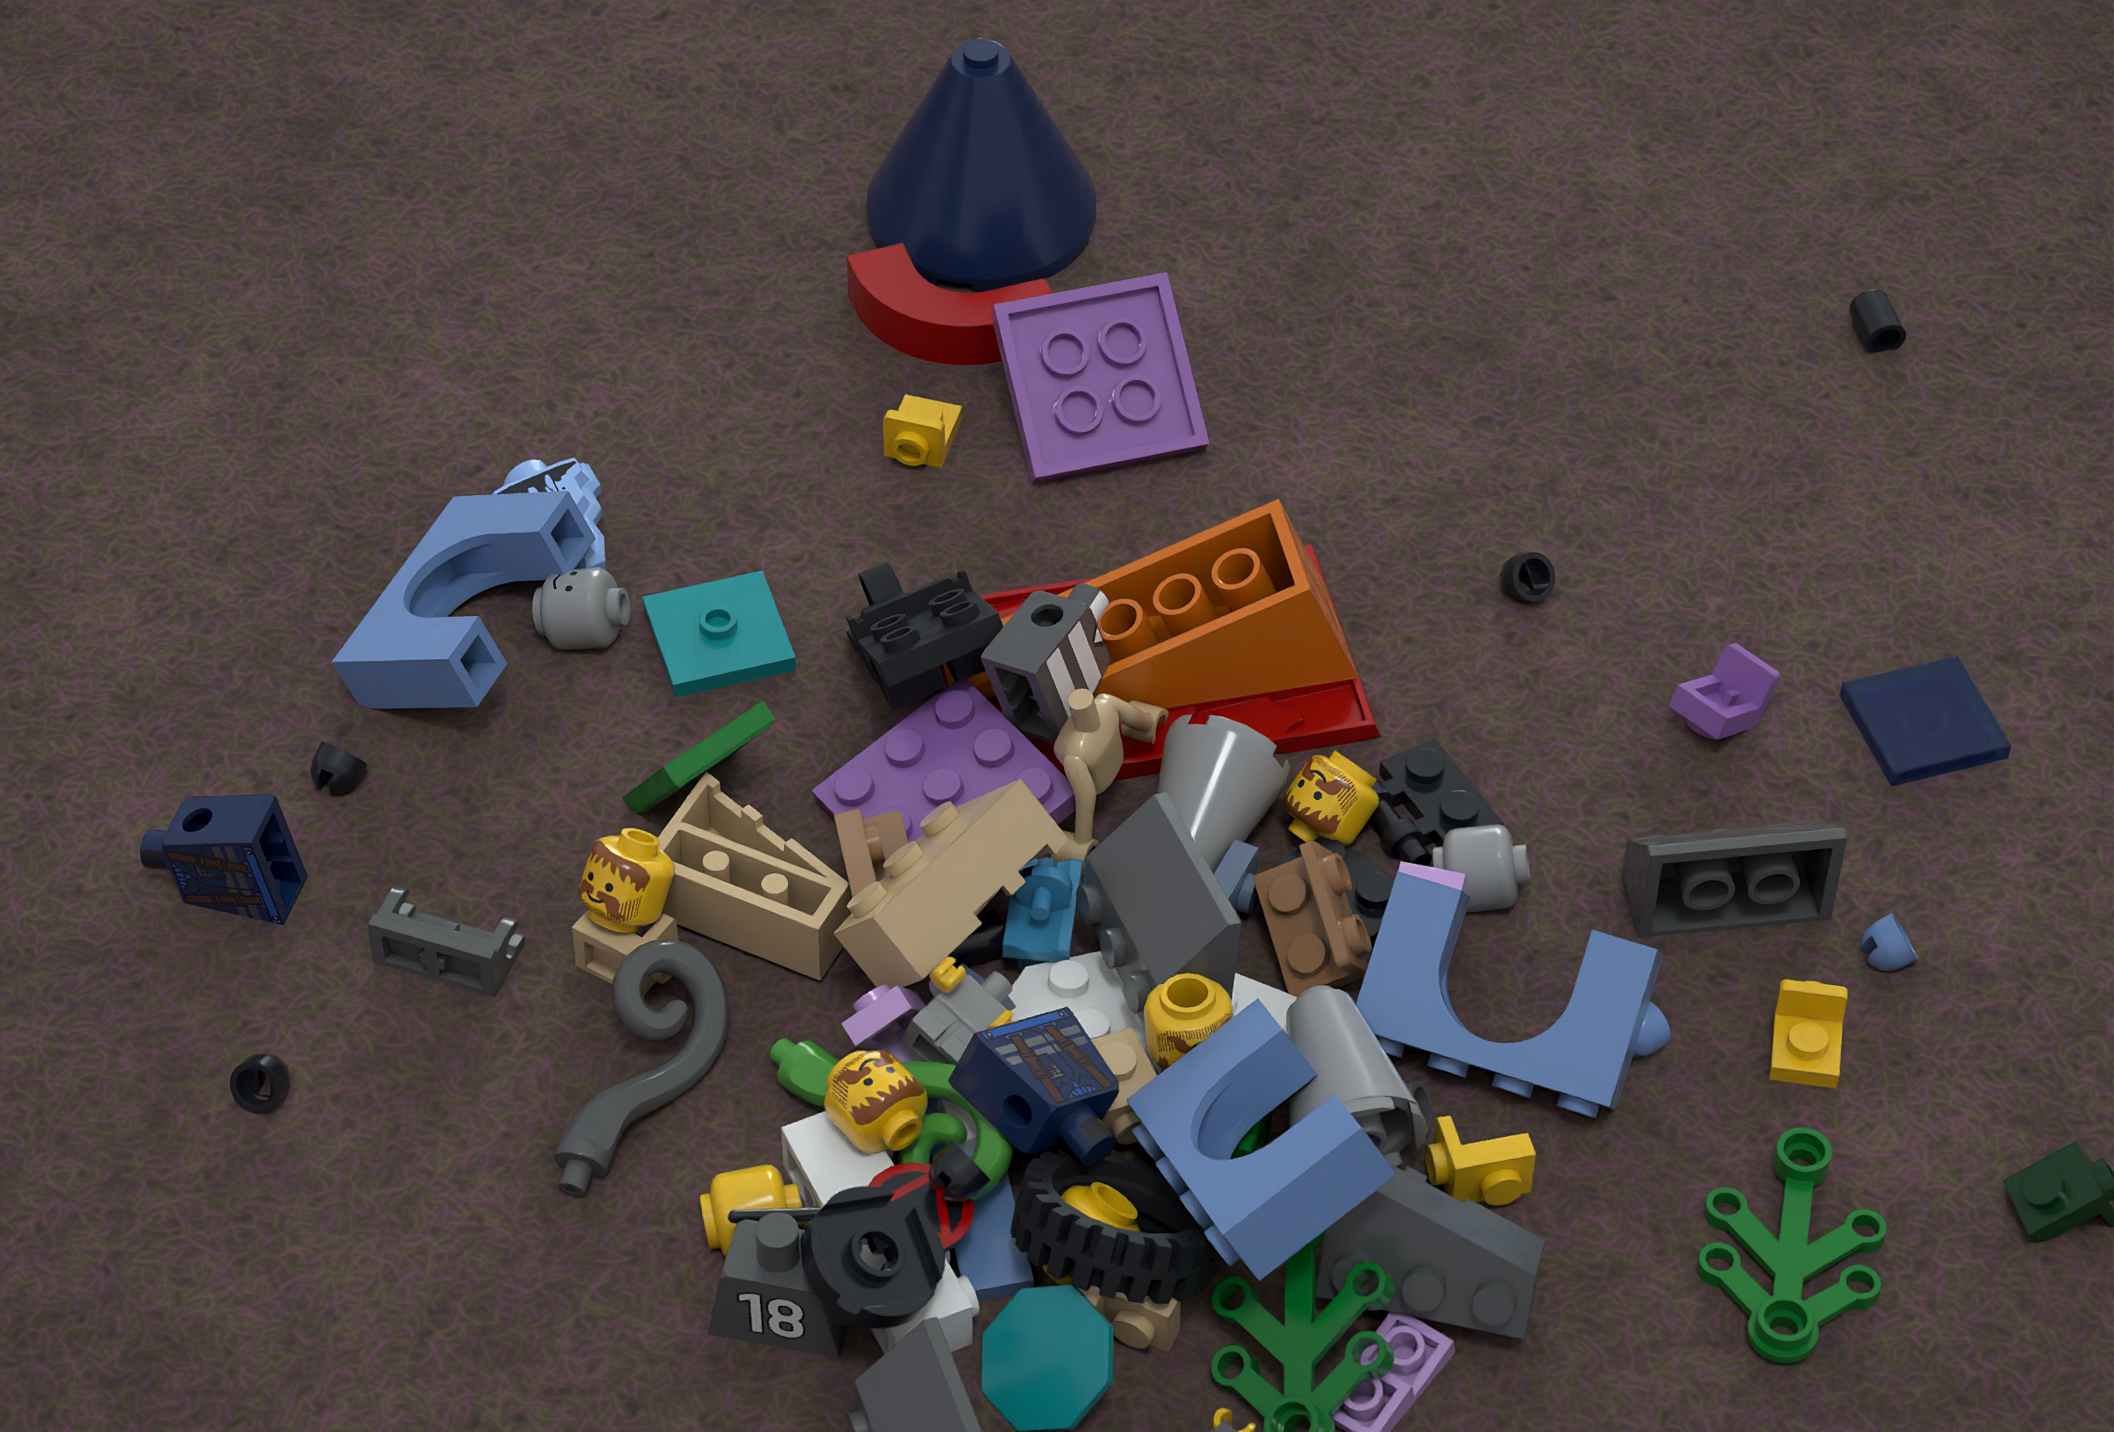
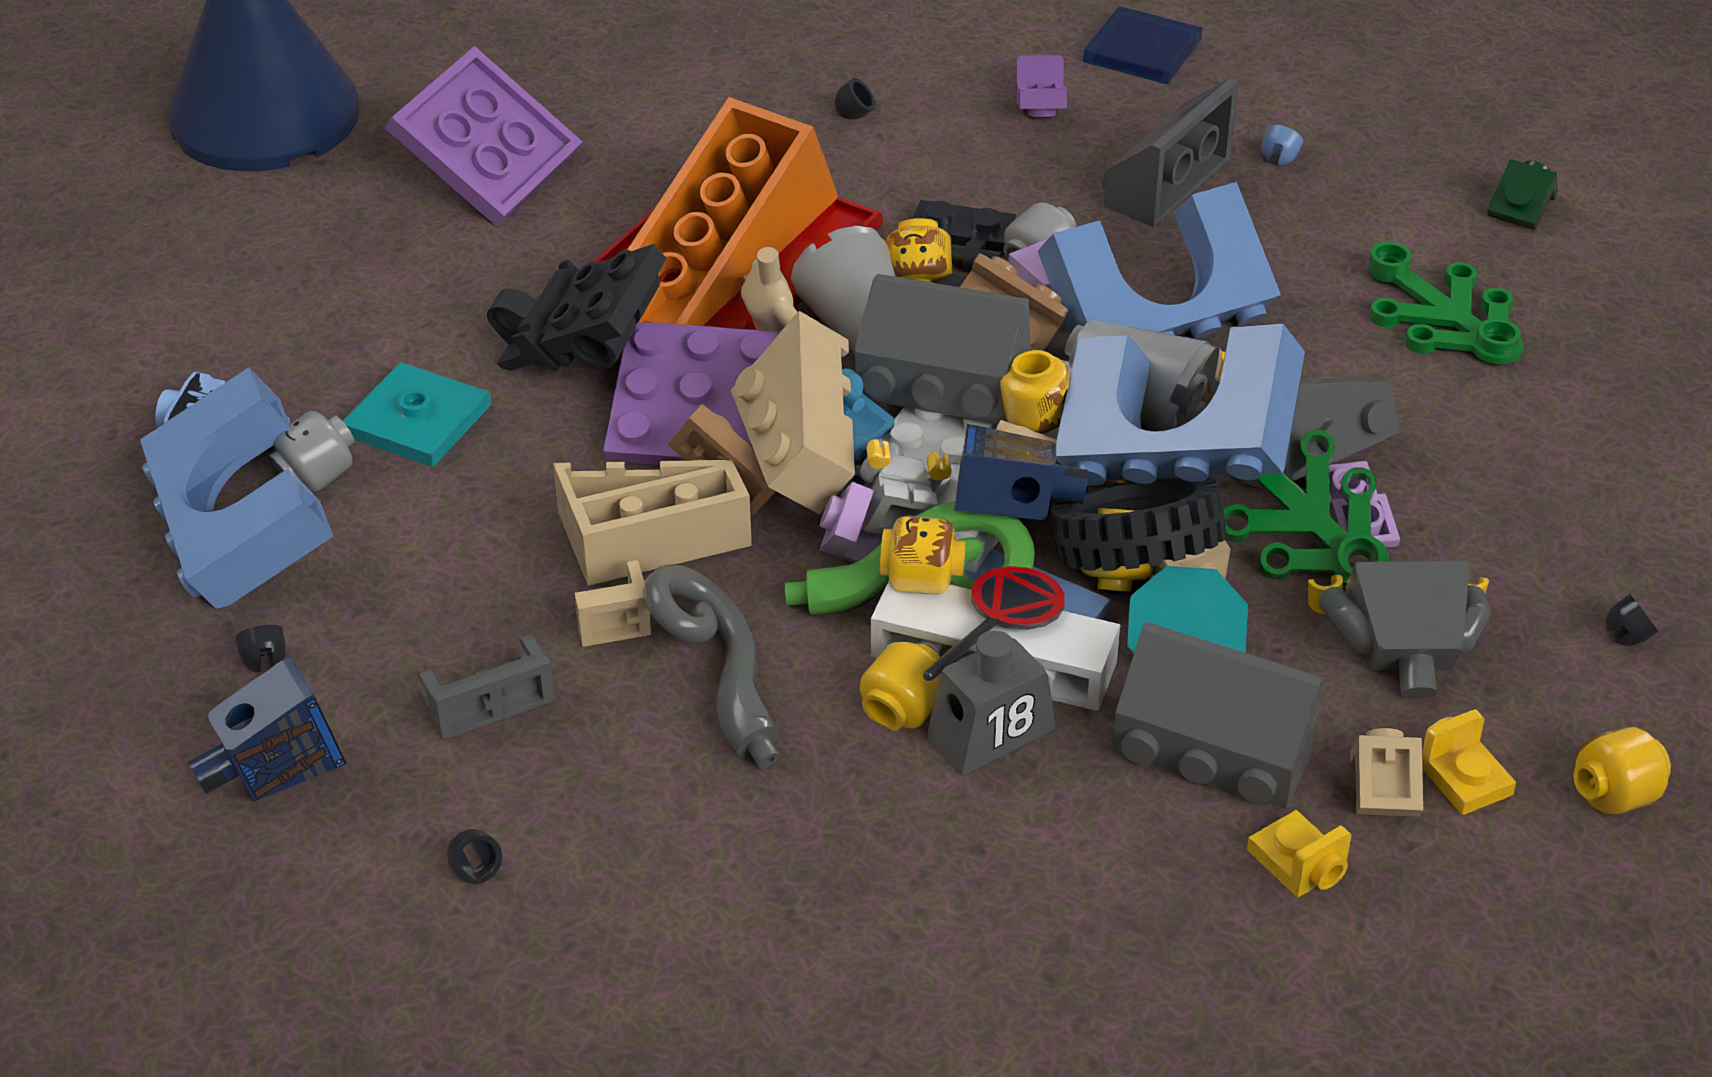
camera: 45 degrees left, 5 degrees down
(626, 881) = (593, 549): yellow head -> none
(699, 759) = (523, 470): green tile -> none
(849, 1286) = (1055, 628): black plate -> none
(921, 431) = (396, 236): yellow bracket -> none
(922, 317) = (317, 177): red arch -> none
(956, 1166) = (1024, 553): black hinge -> none
(1045, 656) = (691, 247): dark grey torso -> none
(1807, 1033) = (1303, 210): yellow bracket -> none

